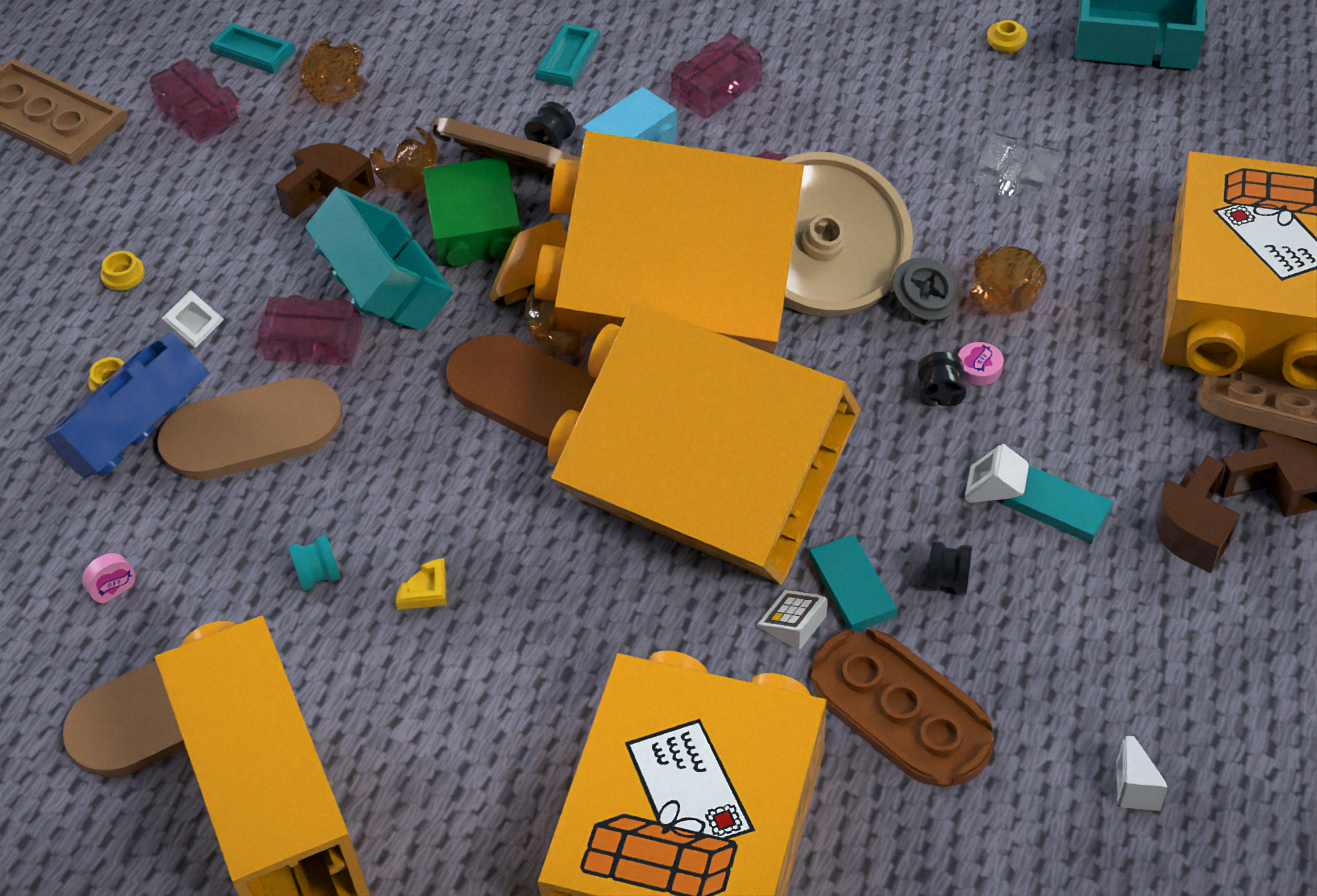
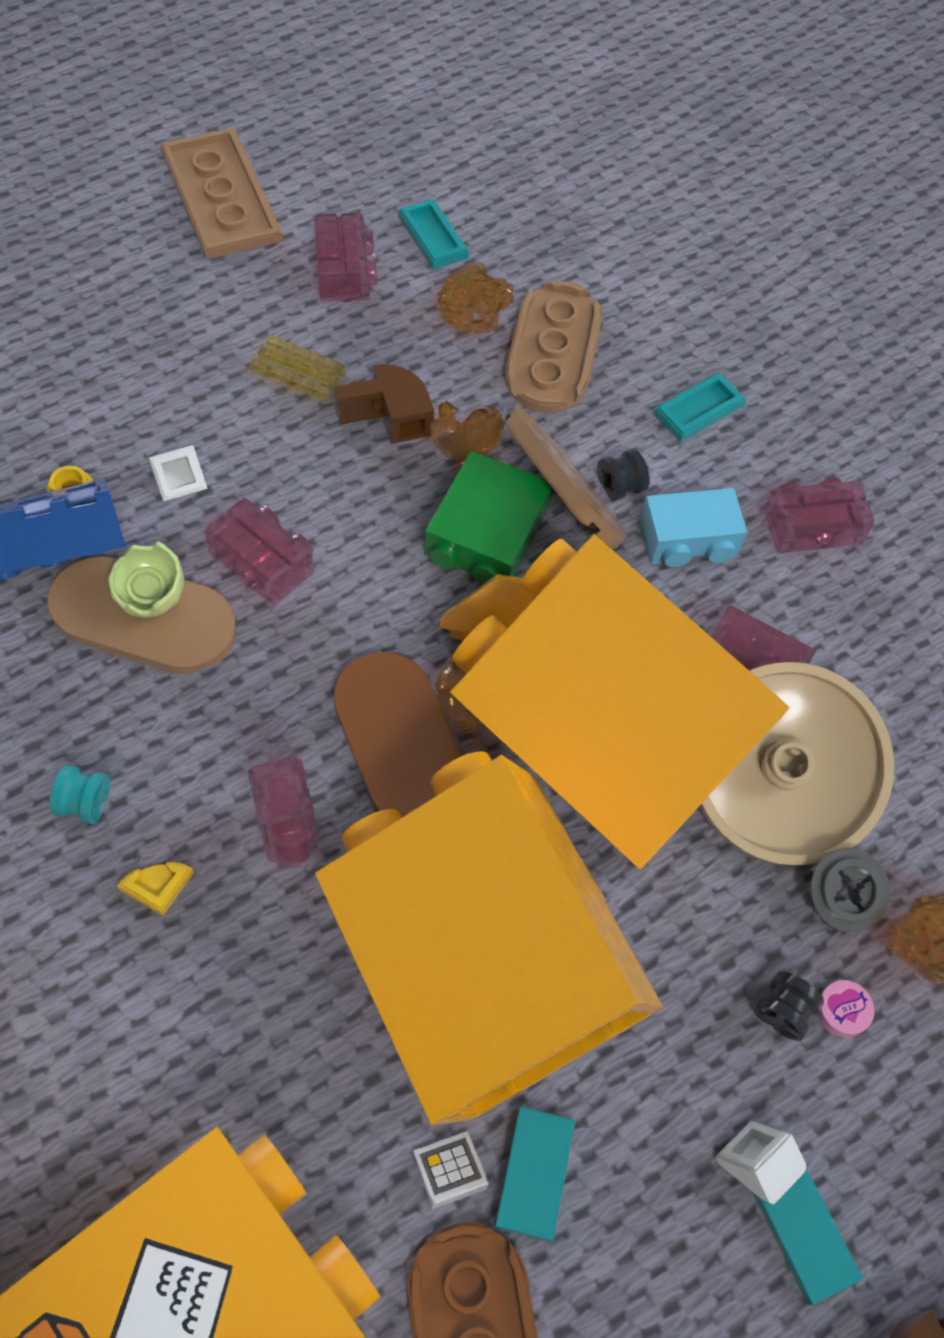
camera: 25 degrees right, 10 degrees up
(121, 271) = (157, 378): yellow plate -> none
(225, 198) = (300, 362): none -> clear yellow tile
(243, 390) = (147, 580): none -> yellowish green hair
(378, 260) = (350, 494): teal piece -> none
(419, 73) = (553, 347): none -> medium nougat tile
(487, 469) = (284, 811): none -> clear pink brick
(949, 568) = (637, 1234): black wheel -> none

